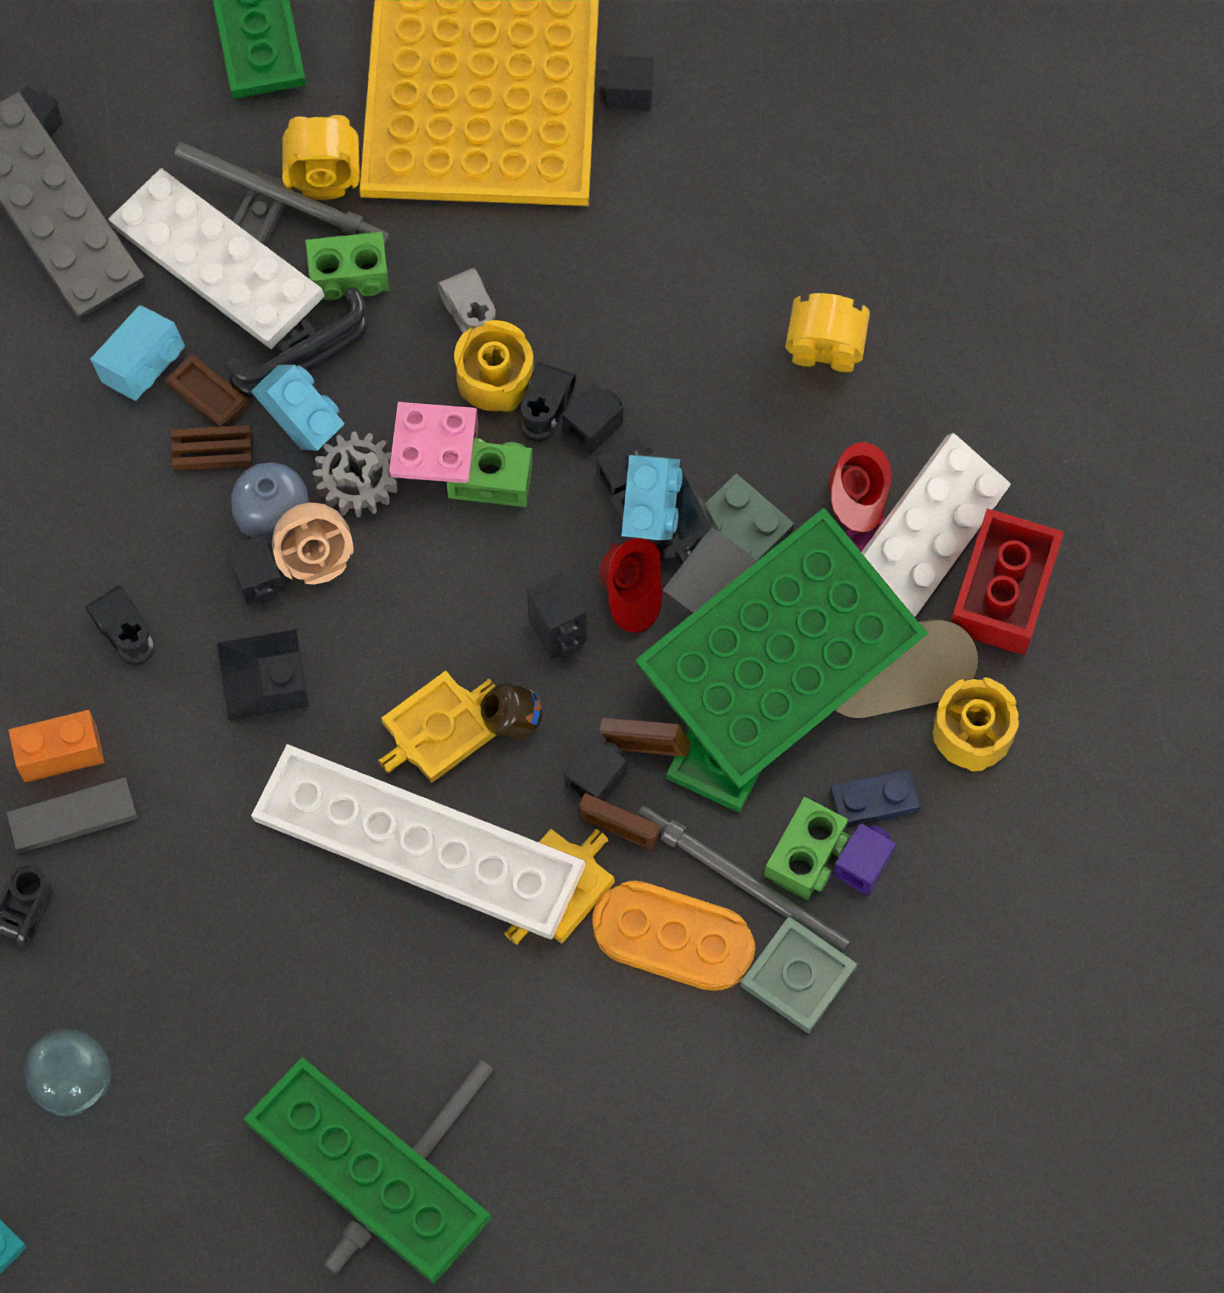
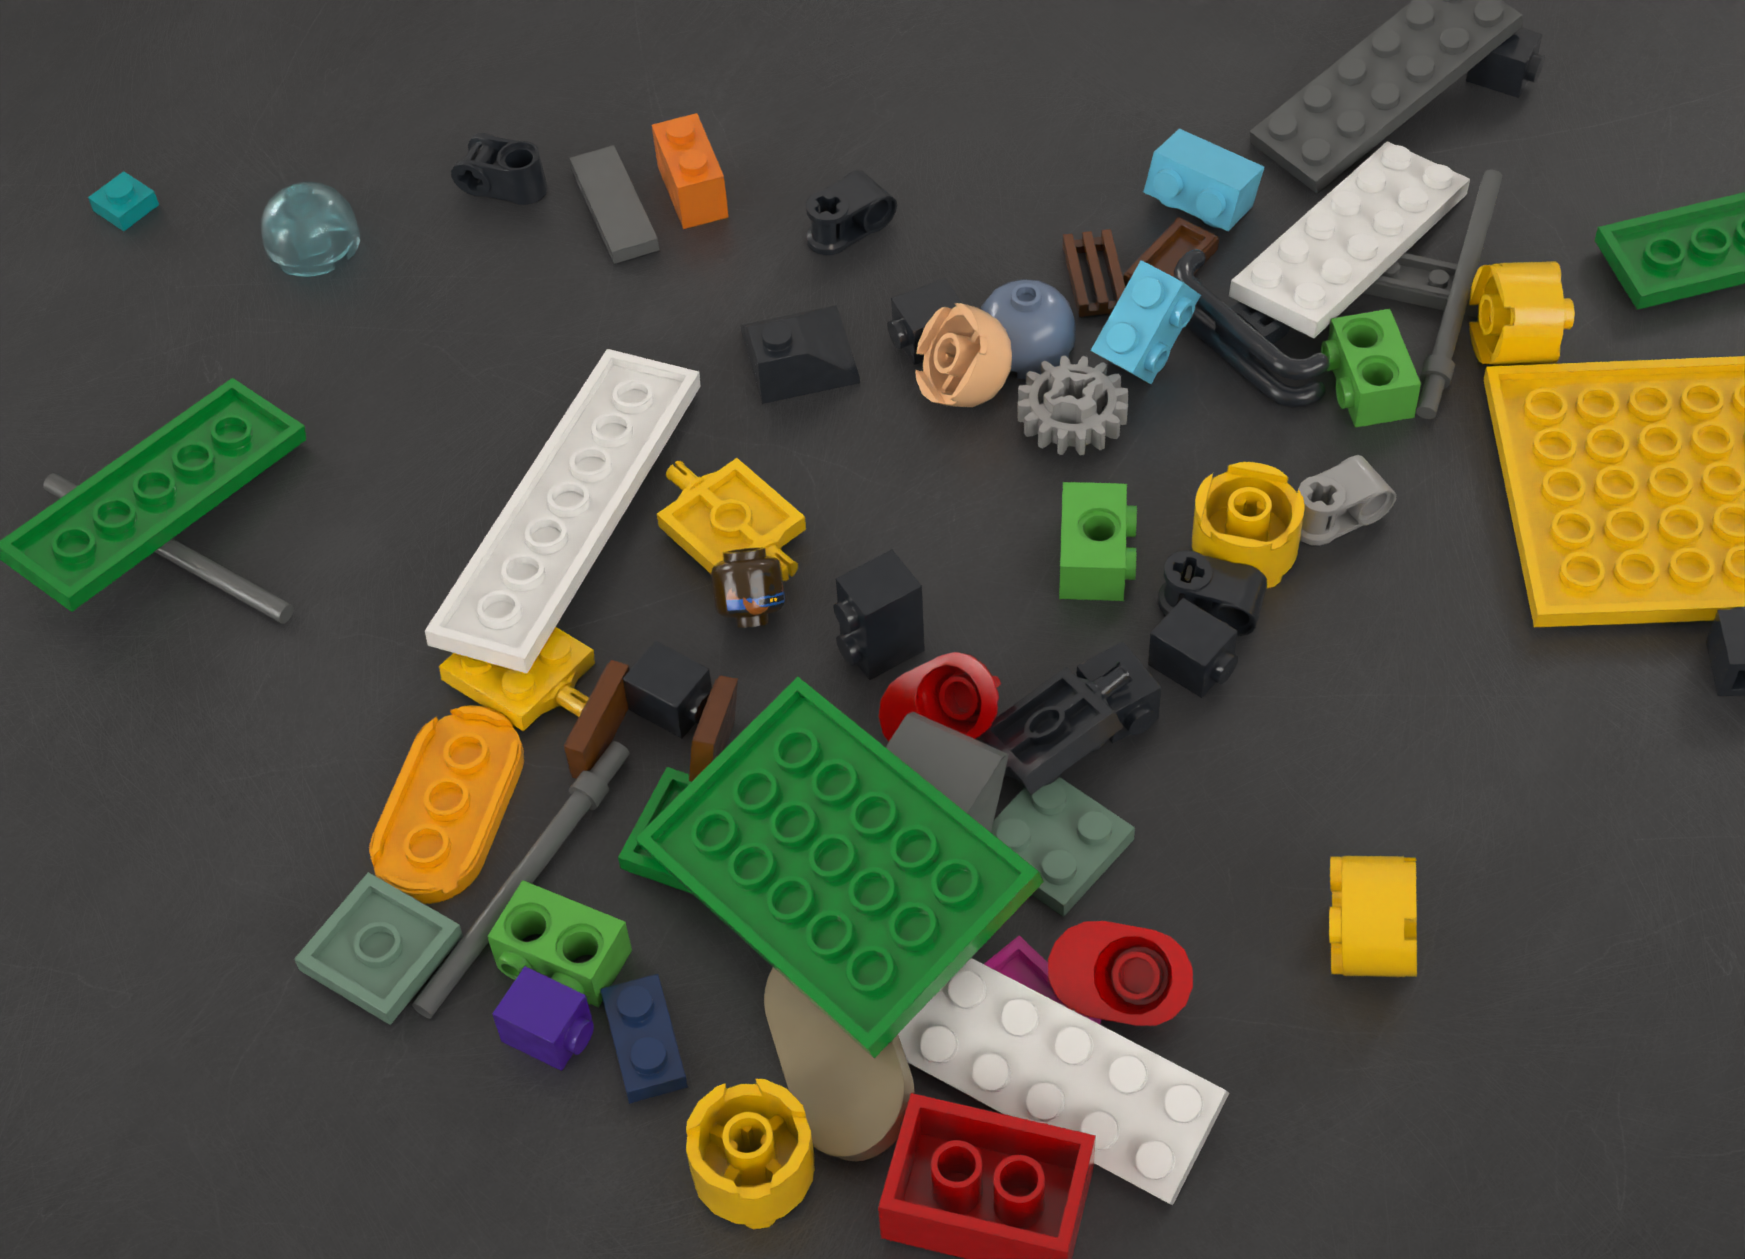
camera: 90 degrees right, 15 degrees down
(433, 442) = (1120, 465): bright pink bracket -> none
(651, 497) = (1049, 682): medium azure brick -> none

